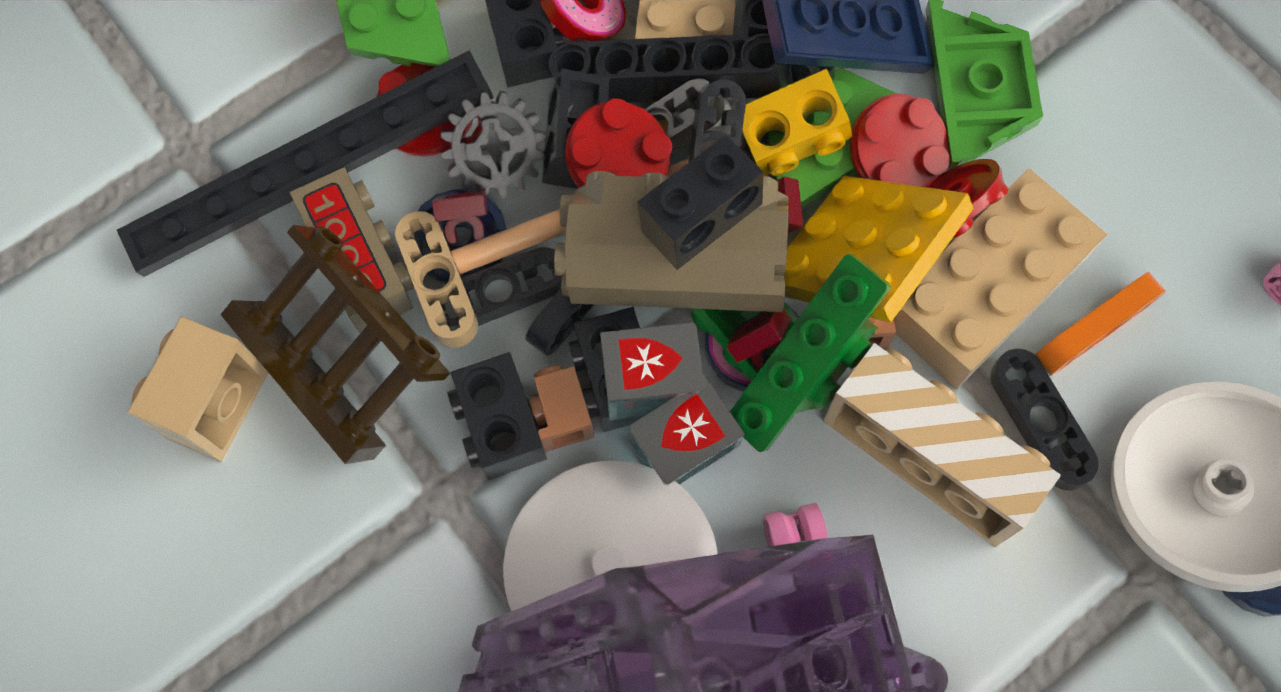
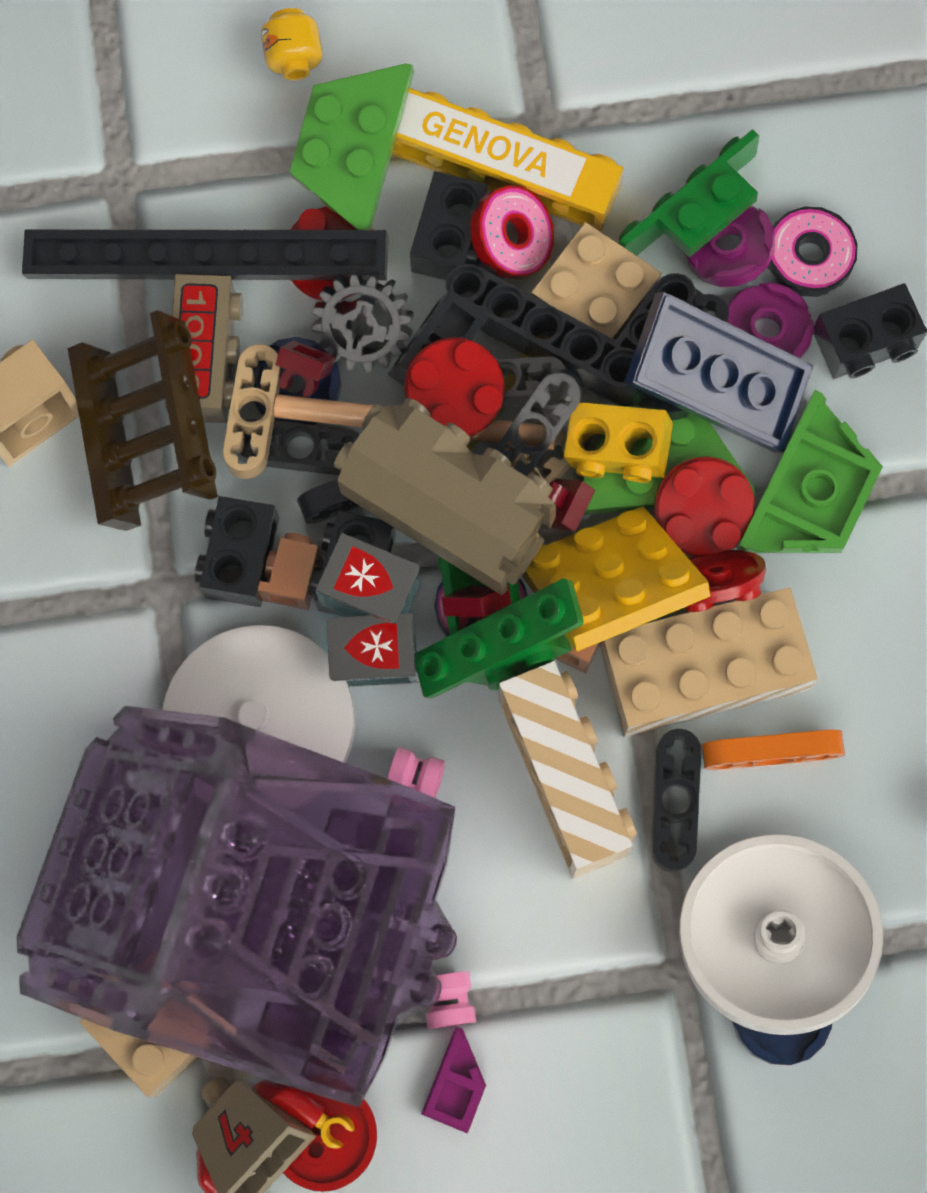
camera: 30 degrees right, 5 degrees up
(701, 201) = (468, 475): black brick -> none

